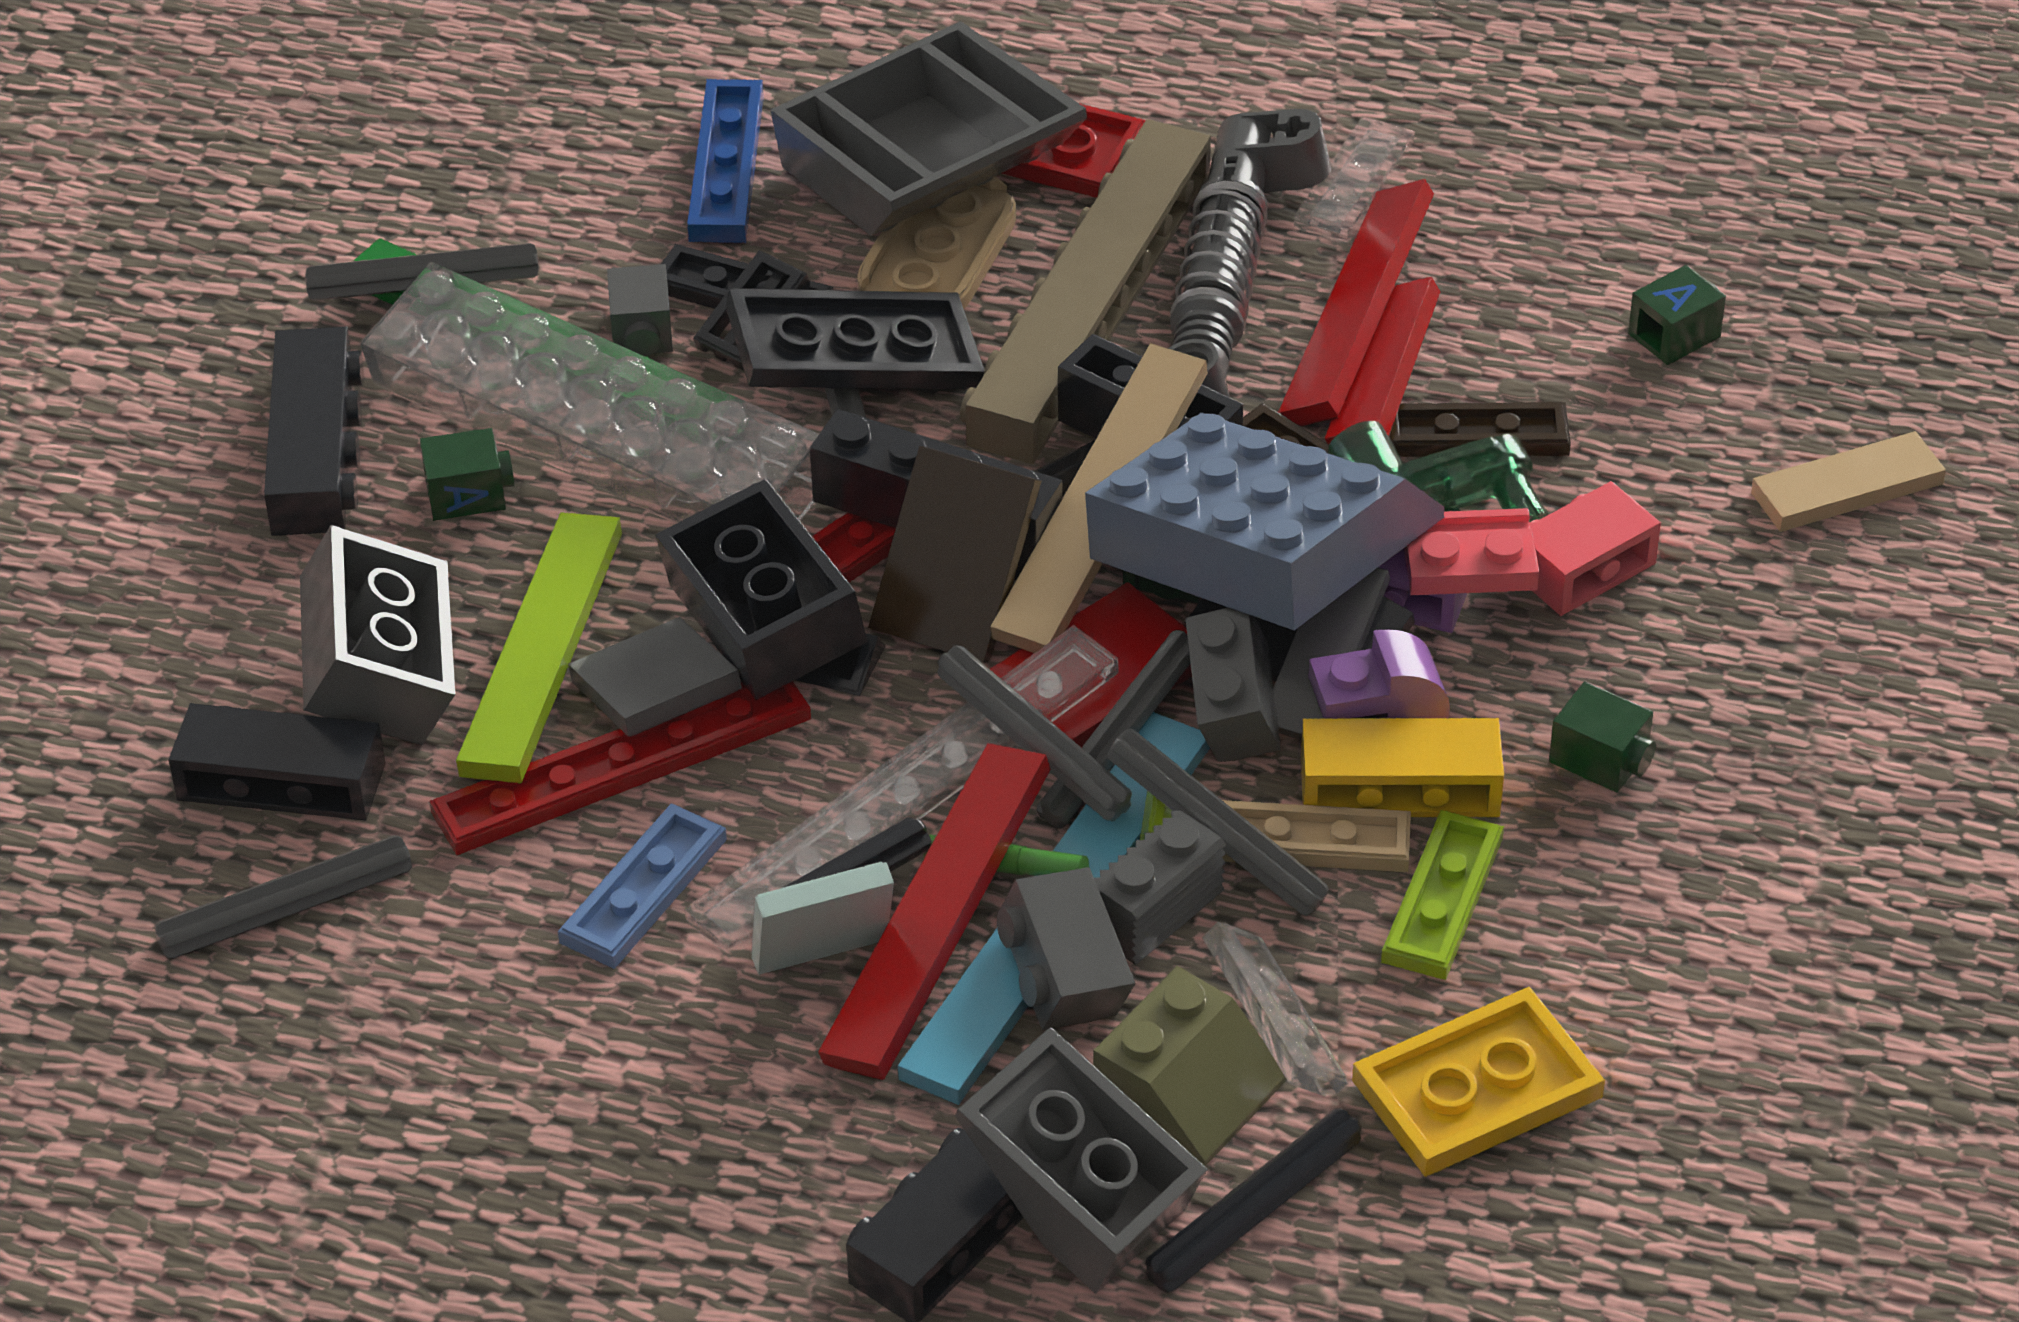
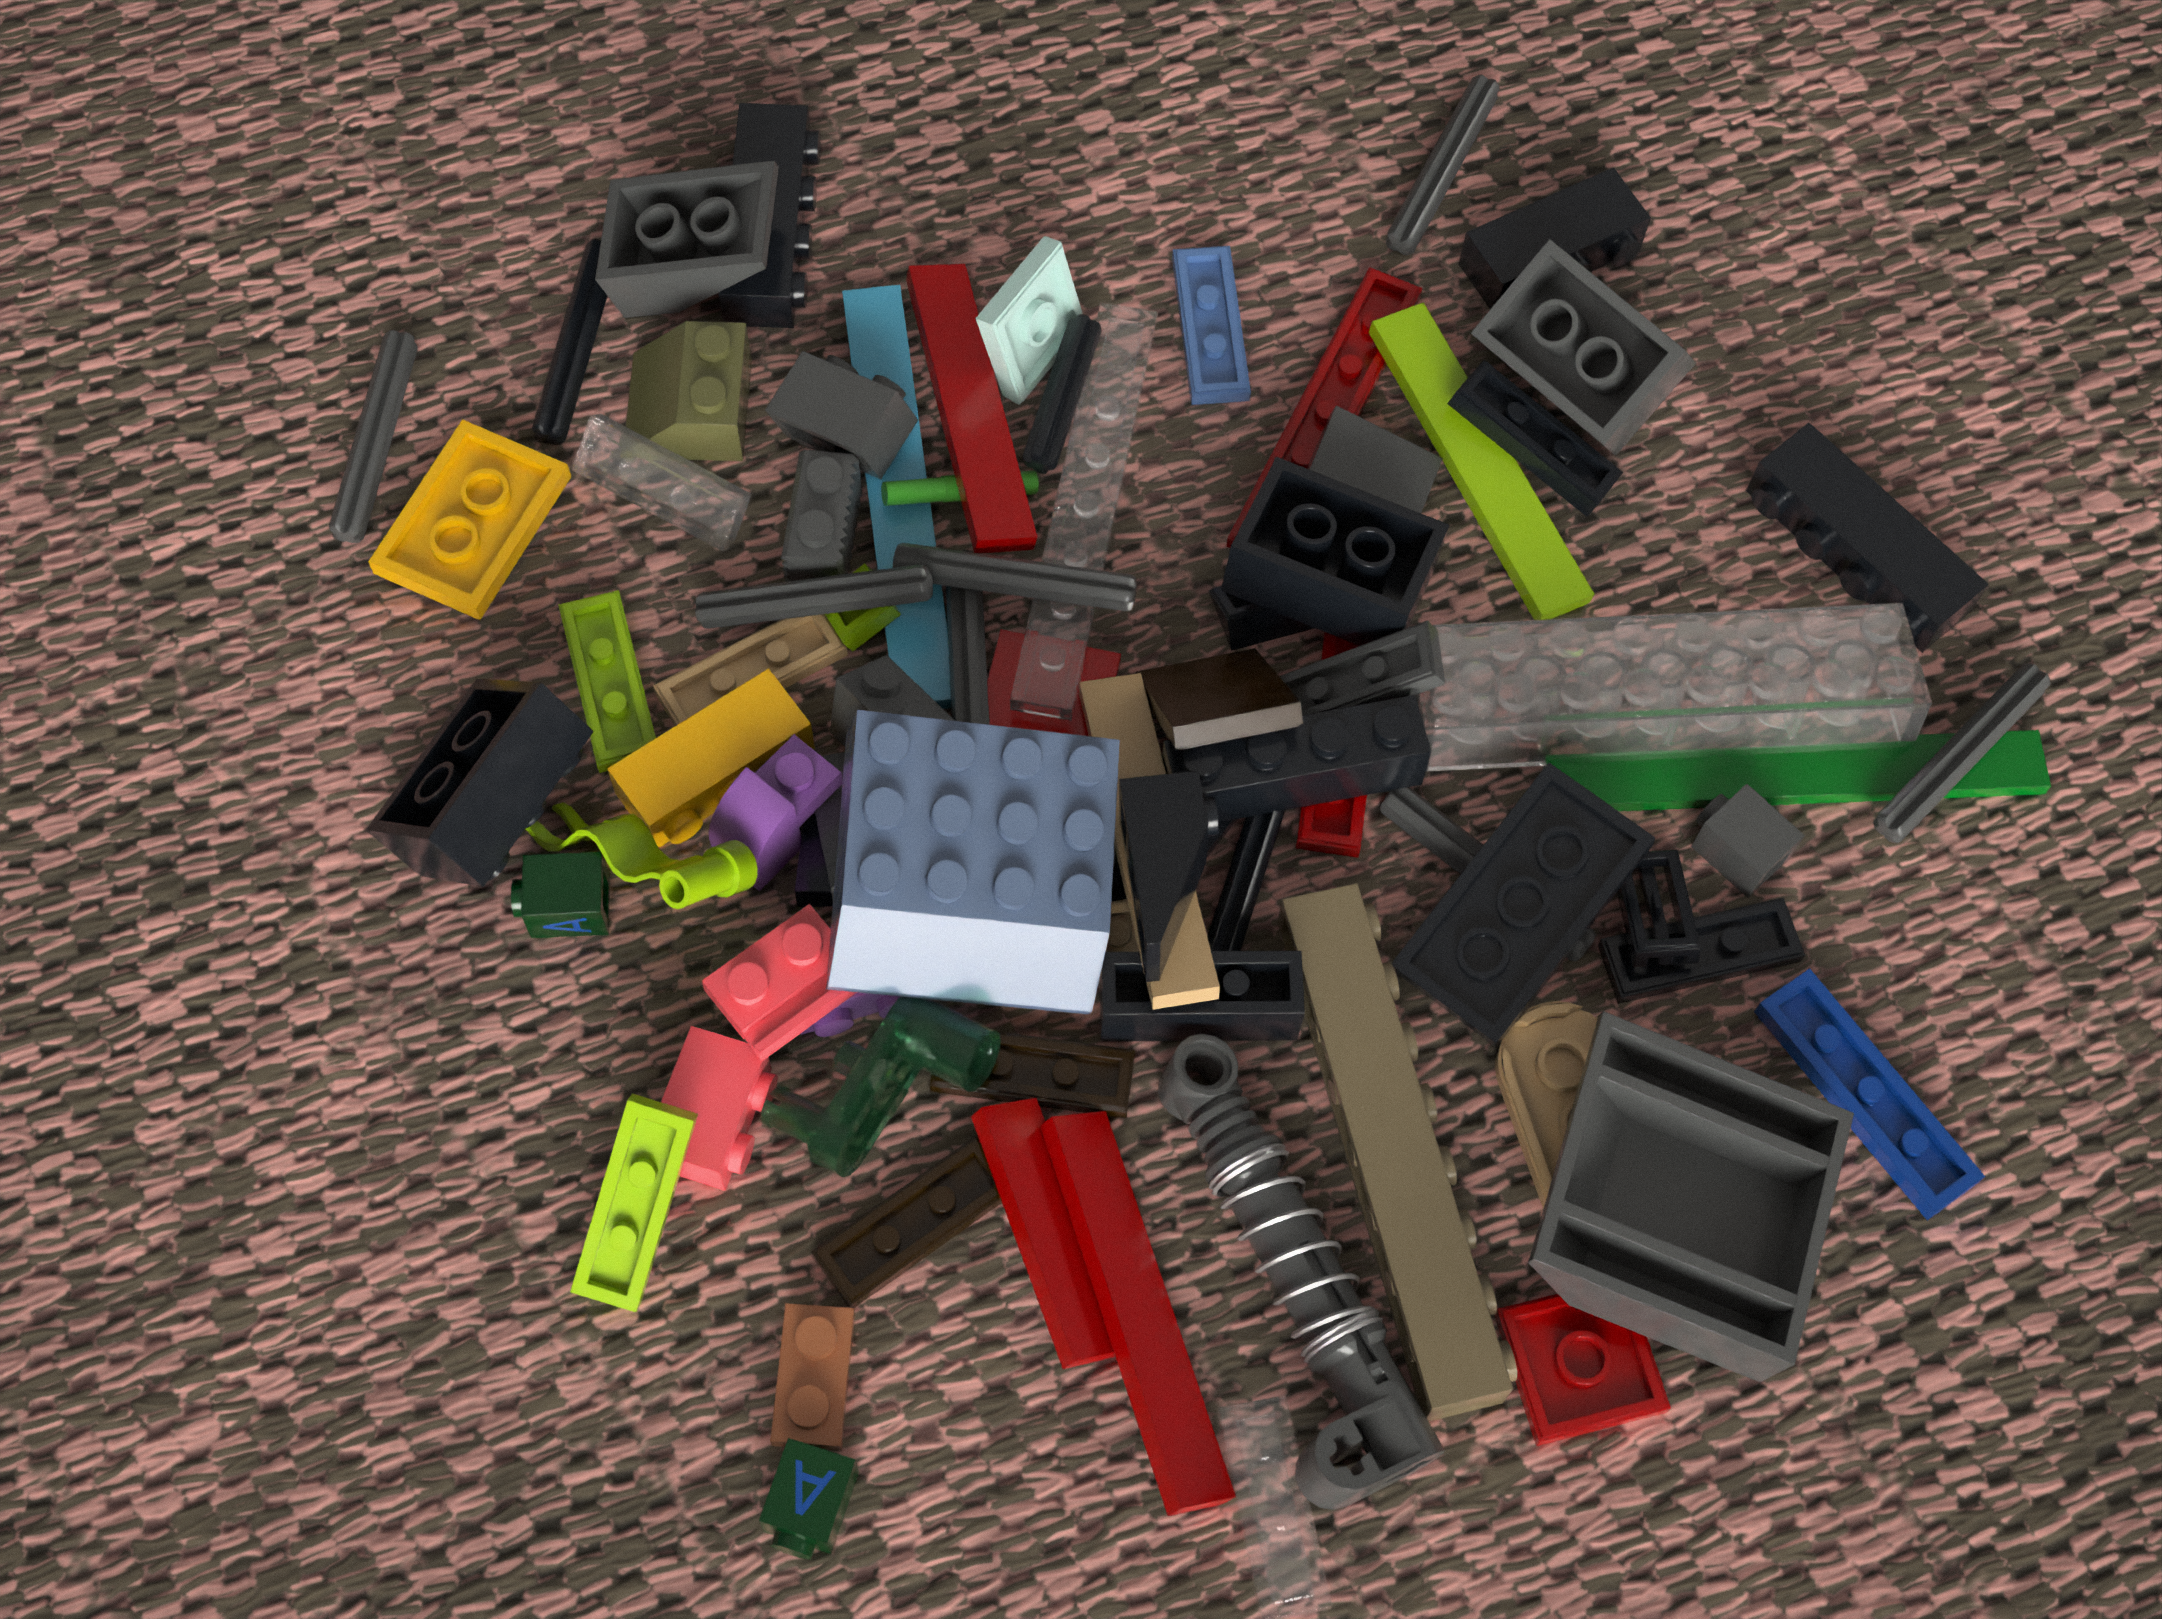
camera: 140 degrees right, 20 degrees up
(465, 473) = (1702, 570): dark green brick -> none
(484, 626) = (1535, 438): none -> black tile
(829, 511) = (1373, 672): none -> dark grey tile
(1121, 416) = (1165, 850): none -> black slope
(1519, 1220) = (373, 437): none -> dark grey axle
(1523, 690) = (636, 857): none -> lime flag
(1622, 386) = (813, 1376): none -> nougat plate
(1623, 814) = (481, 781): none -> black brick
(1688, 495) = (634, 1202): none -> lime plate
(1848, 481) = (520, 1389): tan tile -> none

